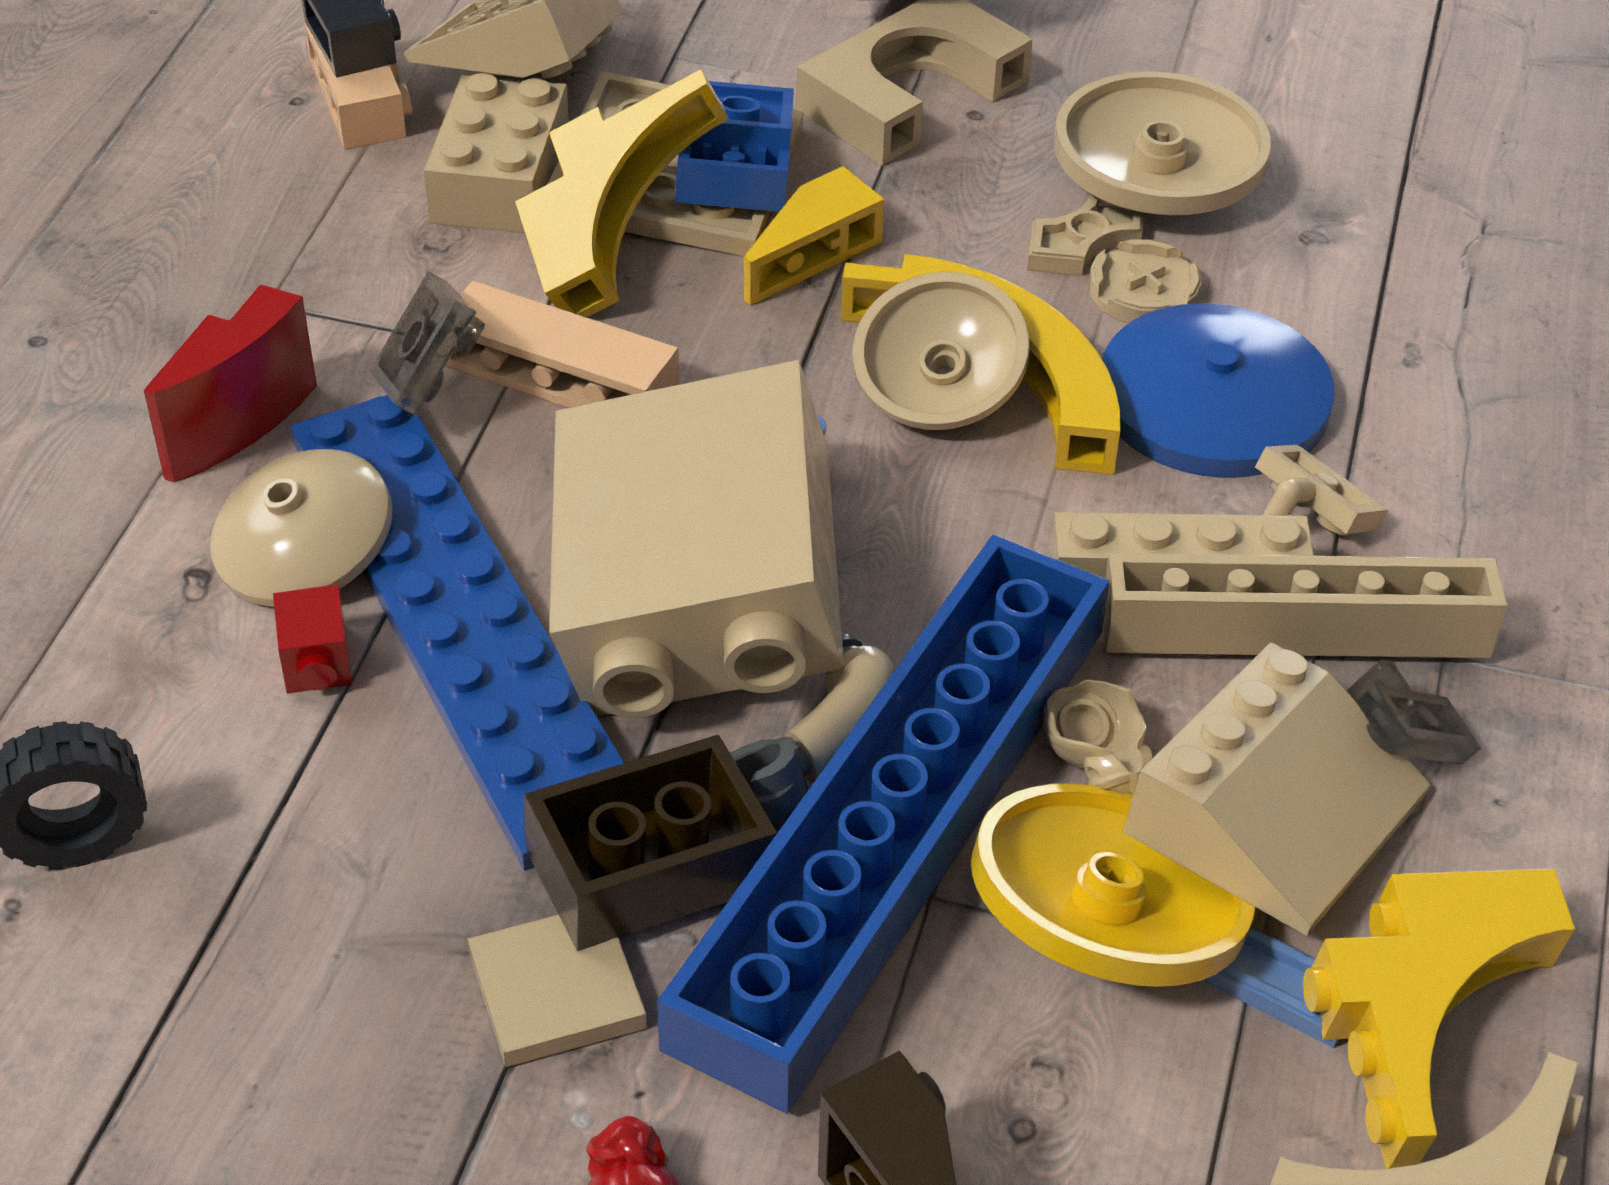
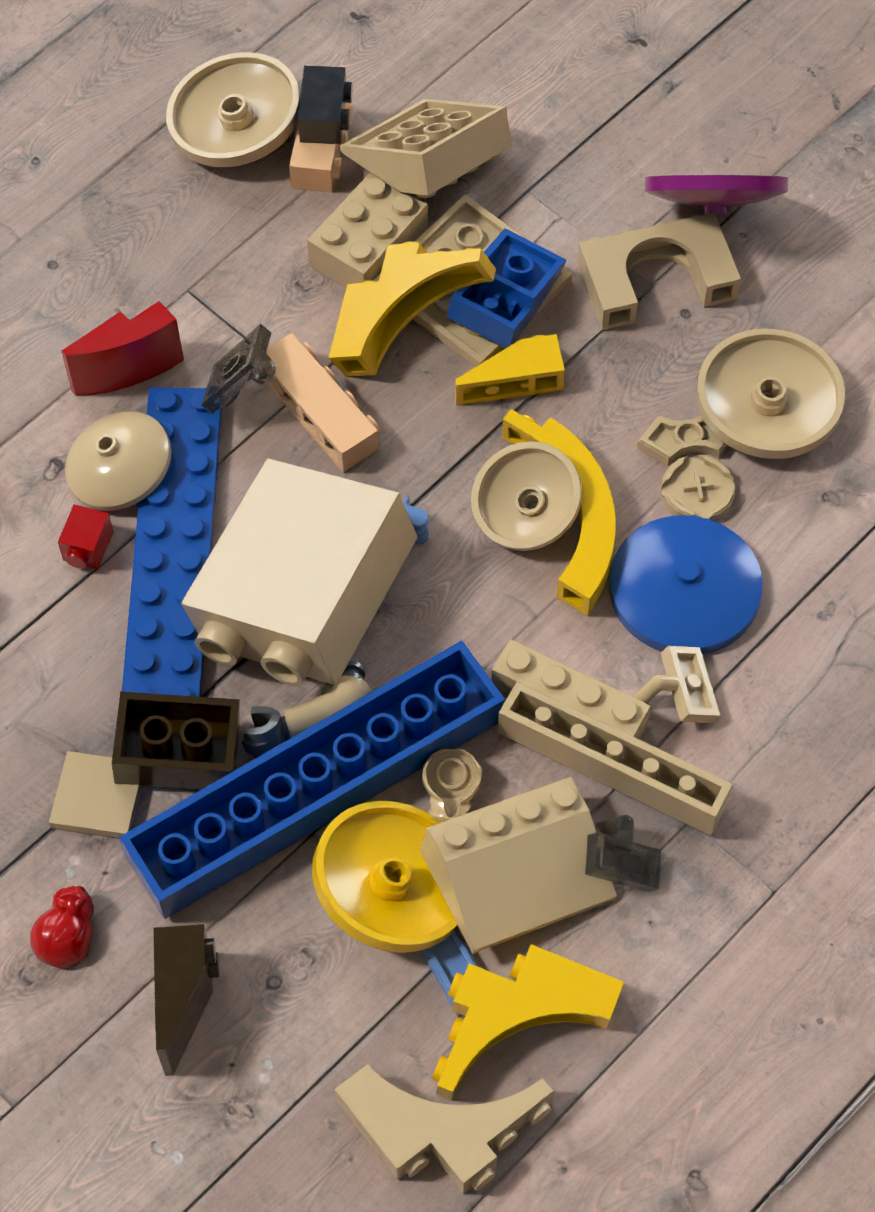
camera: 30 degrees right, 15 degrees up
(212, 76) = (233, 109): none -> tan dish

